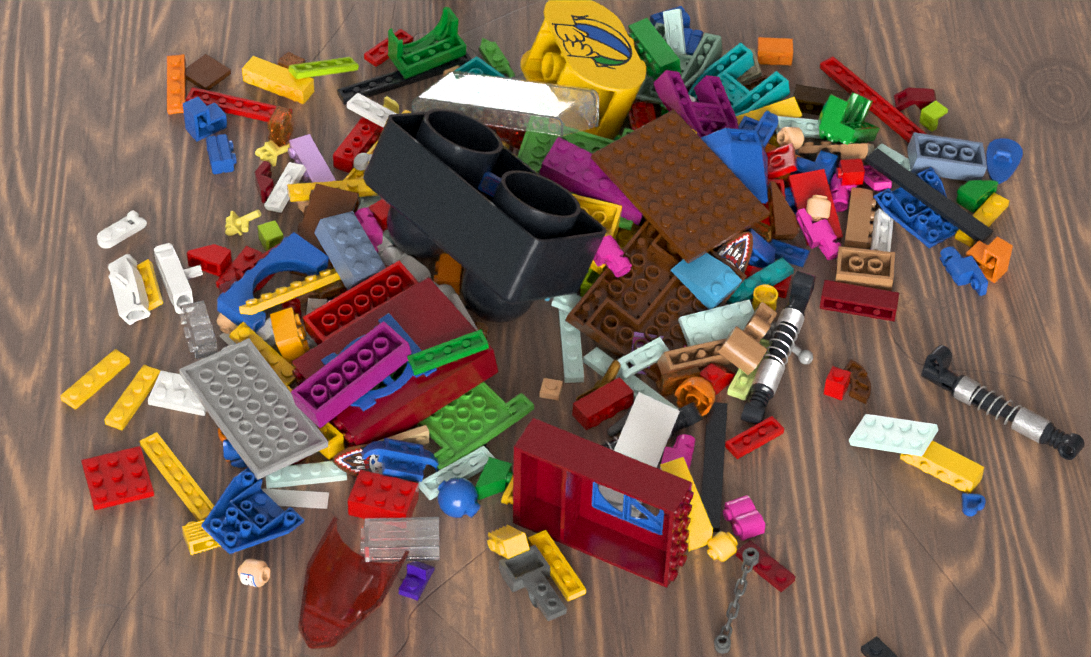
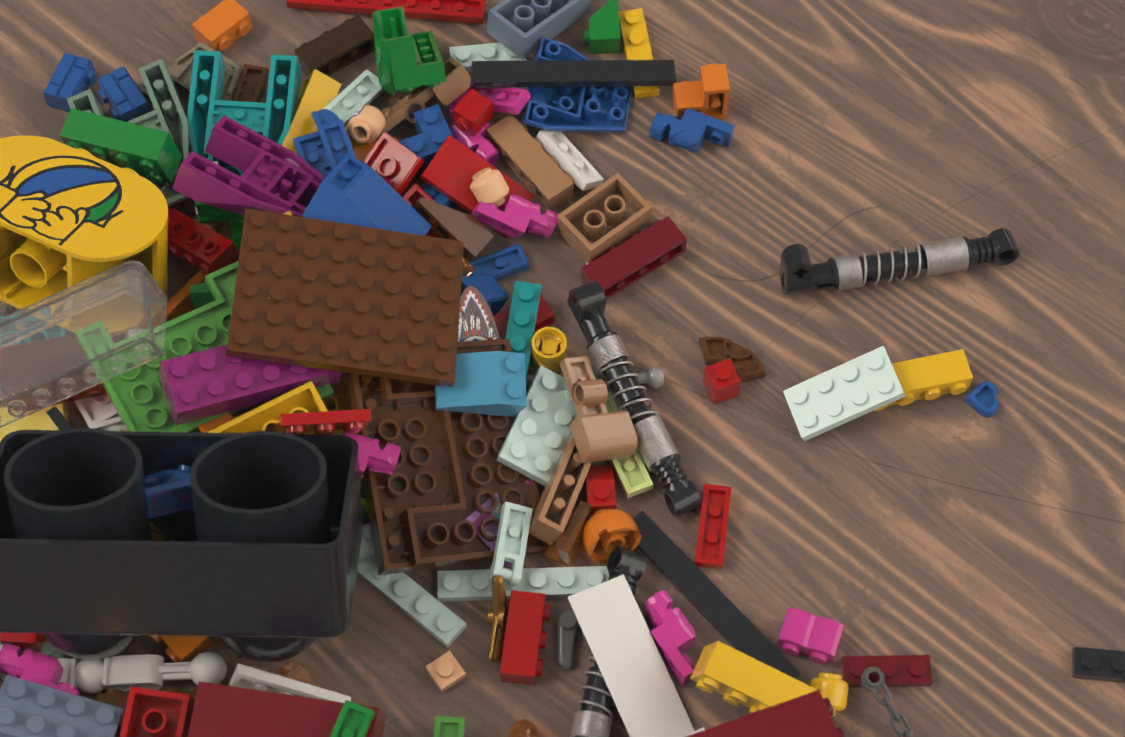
camera: 45 degrees left, 15 degrees up
(614, 223) = (325, 422): none -> red plate
(674, 30) = (104, 95): light aqua plate -> none

